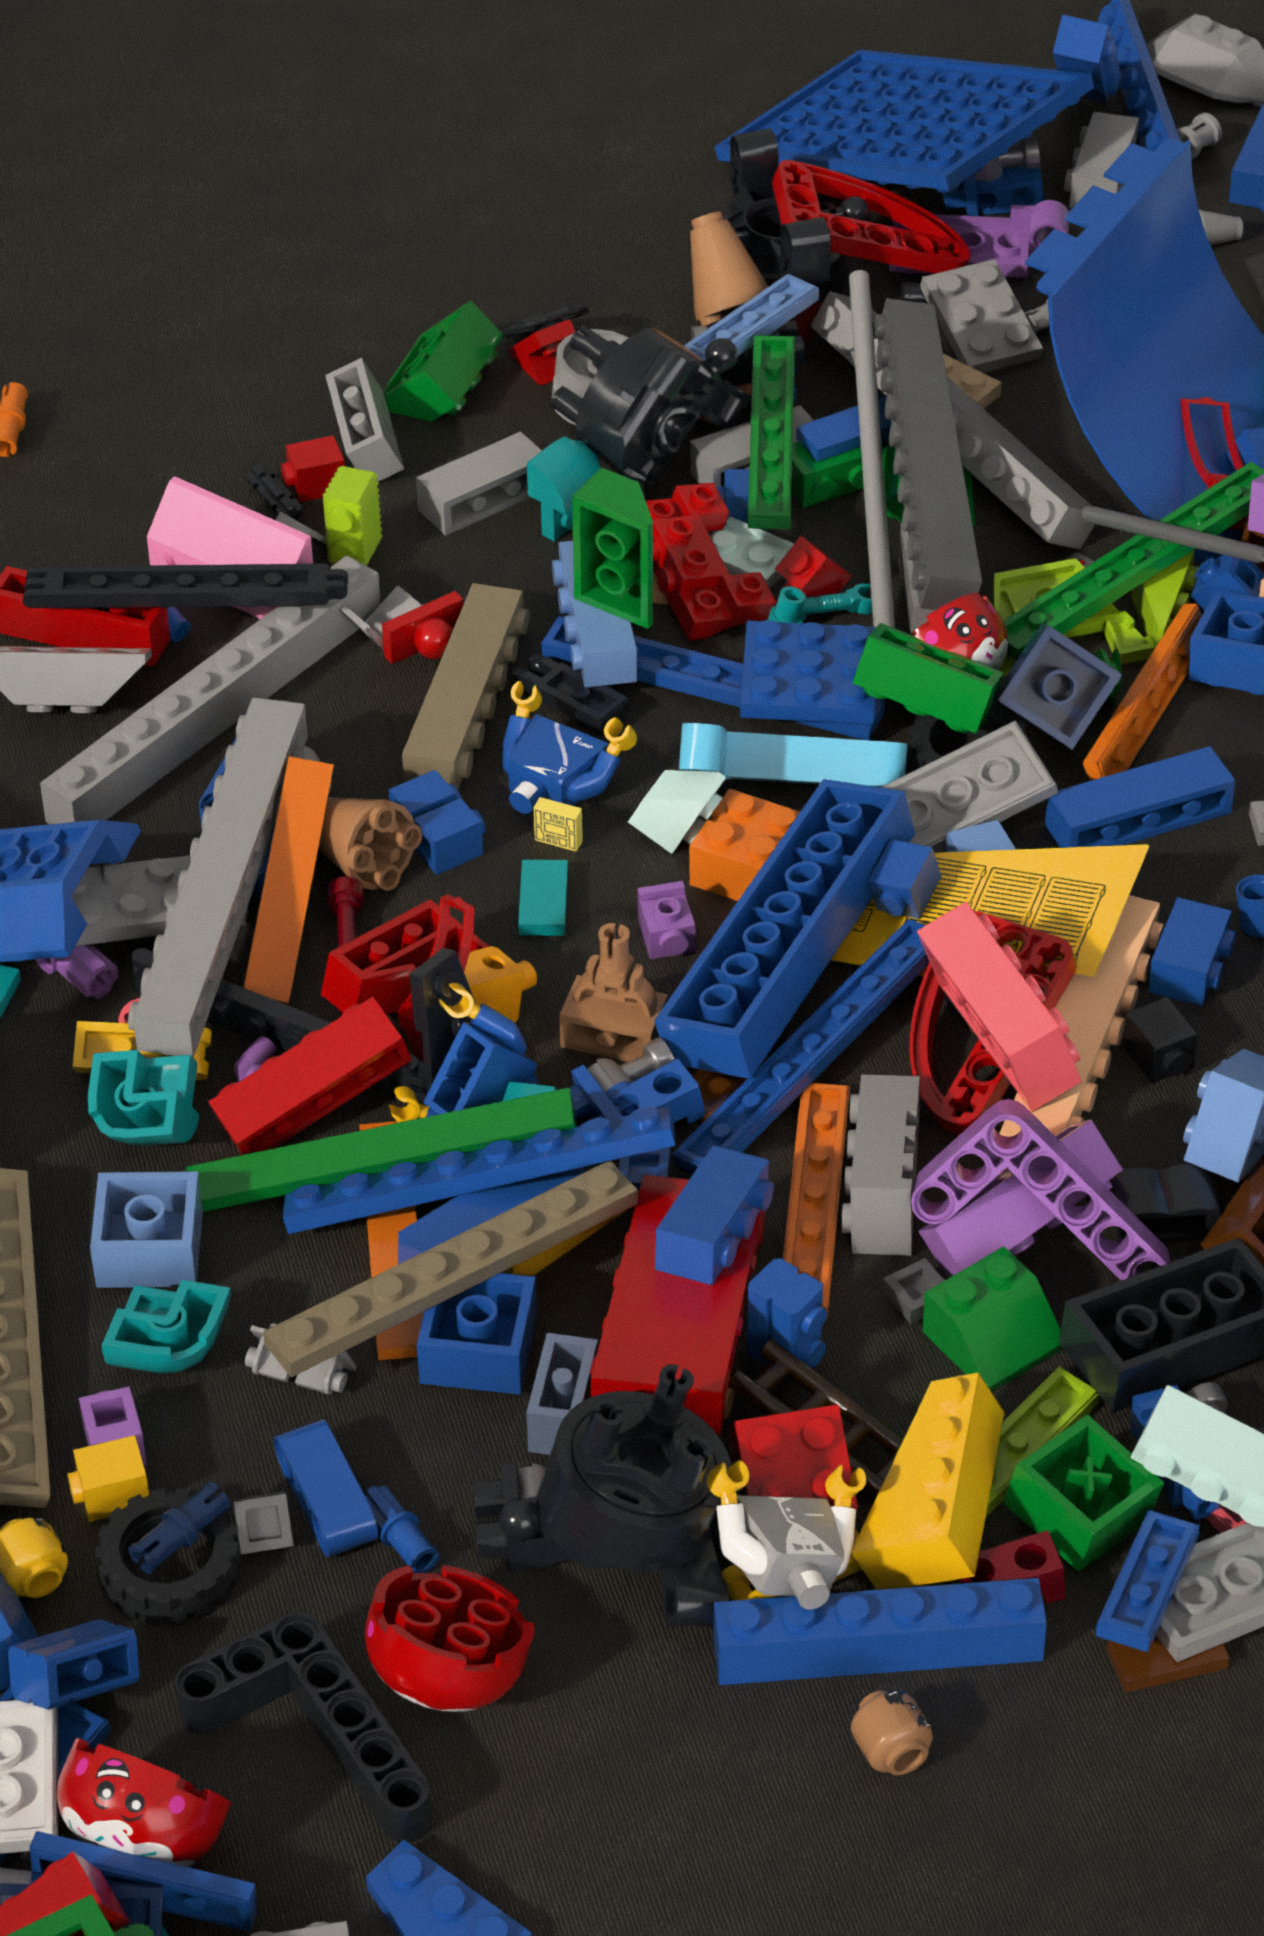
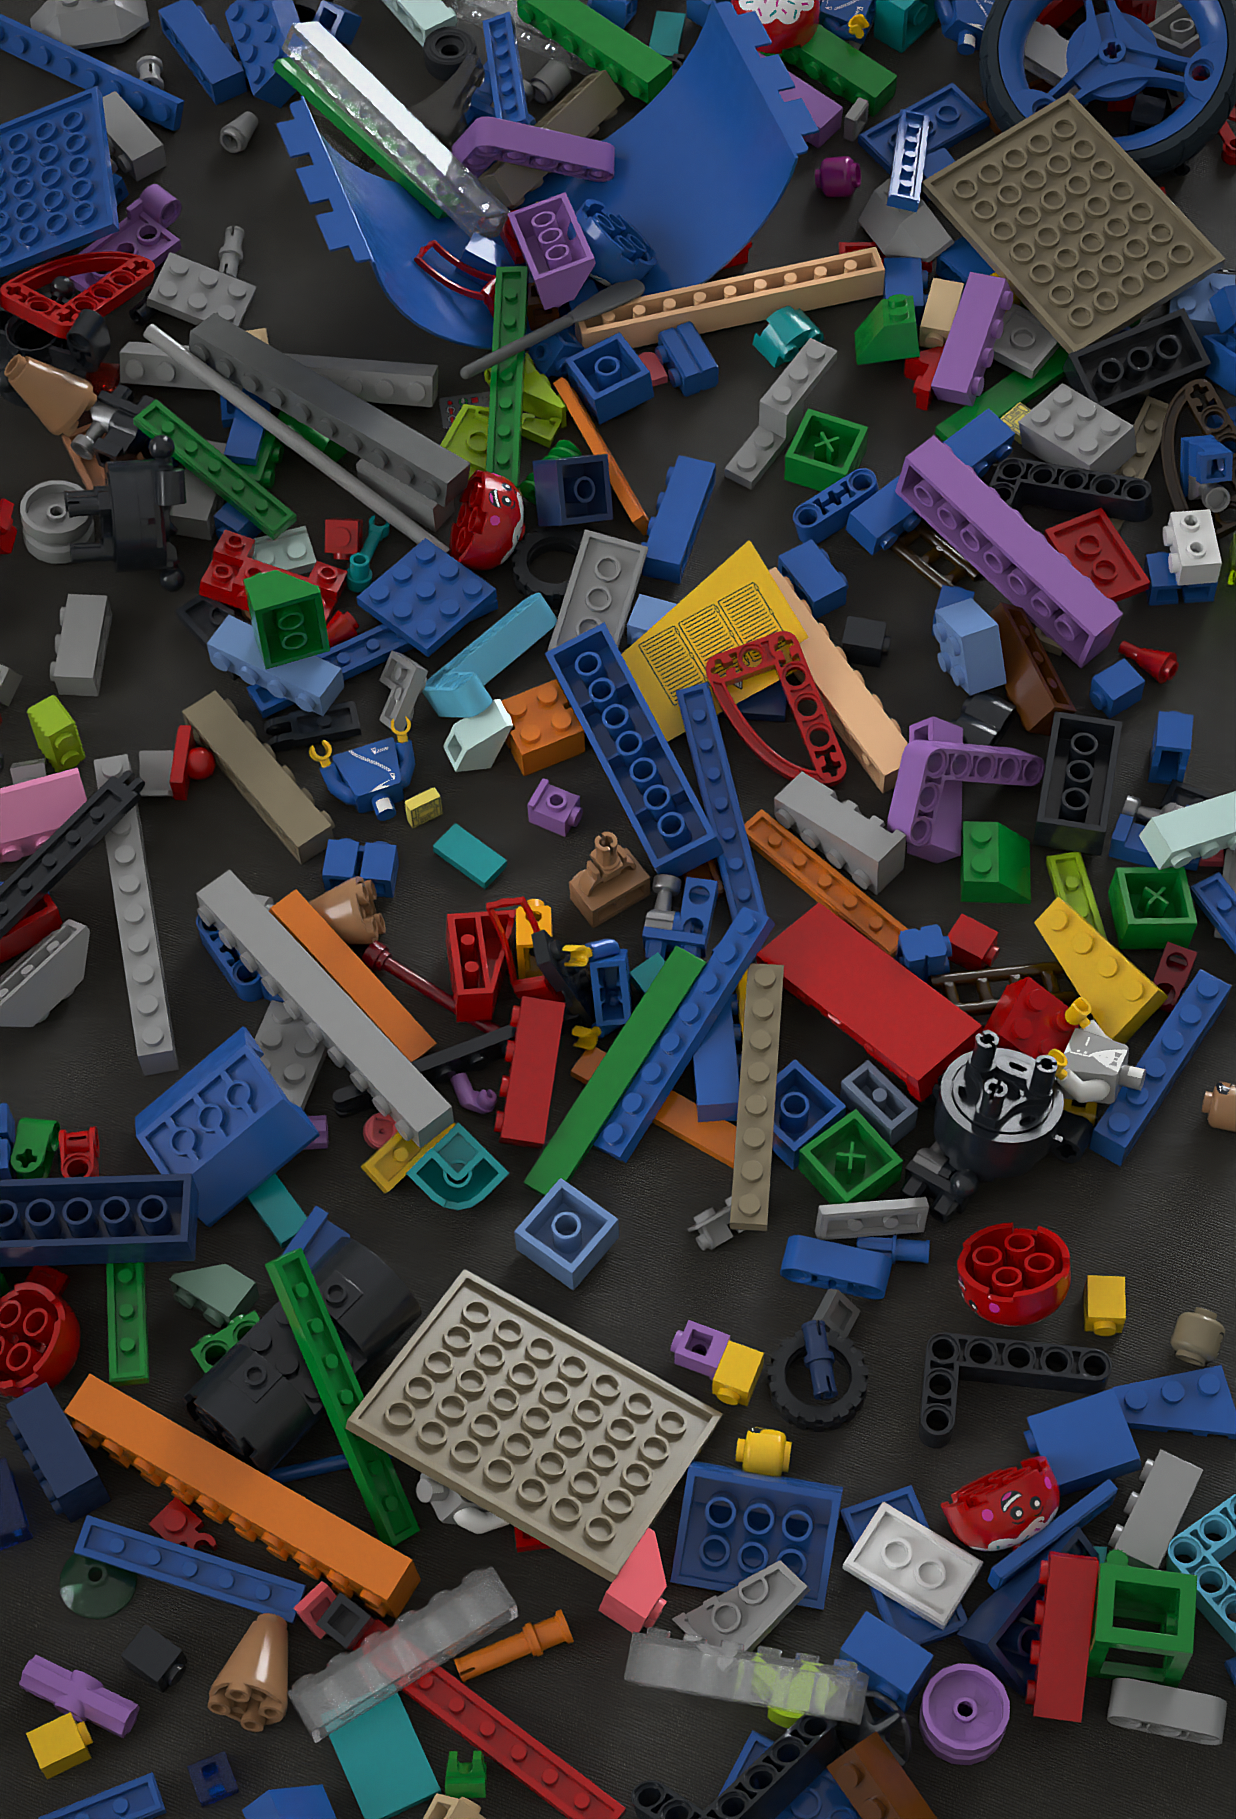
camera: 50 degrees left, 15 degrees up
(73, 1664) = (873, 1477): blue brick -> none
(166, 1328) = (653, 1271): teal brick -> none
(298, 1846) = (1084, 1441): none -> blue brick
(409, 1474) = (871, 1218): none -> light grey tile
(460, 1415) = (850, 1162): none -> green brick
(505, 1765) = (1104, 1304): none -> yellow brick
(545, 1883) = (1197, 1337): none -> dark tan head
(555, 477) = (146, 604): teal brick -> none
(693, 709) = (406, 682): none -> light grey plate
(704, 638) = (341, 628): none -> red cone
(713, 1215) = (838, 941): blue brick -> none
(759, 315) = (114, 410): medium blue tile -> none
(864, 1361) = (973, 944): none -> red brick
(904, 879) = (649, 671): blue brick -> none
(908, 1287) = (940, 883): dark grey plate -> none
(927, 679) = (513, 545): green brick -> none
(1001, 1005) = (810, 696): coral brick -> none
(1088, 49) = (70, 77): blue brick -> none

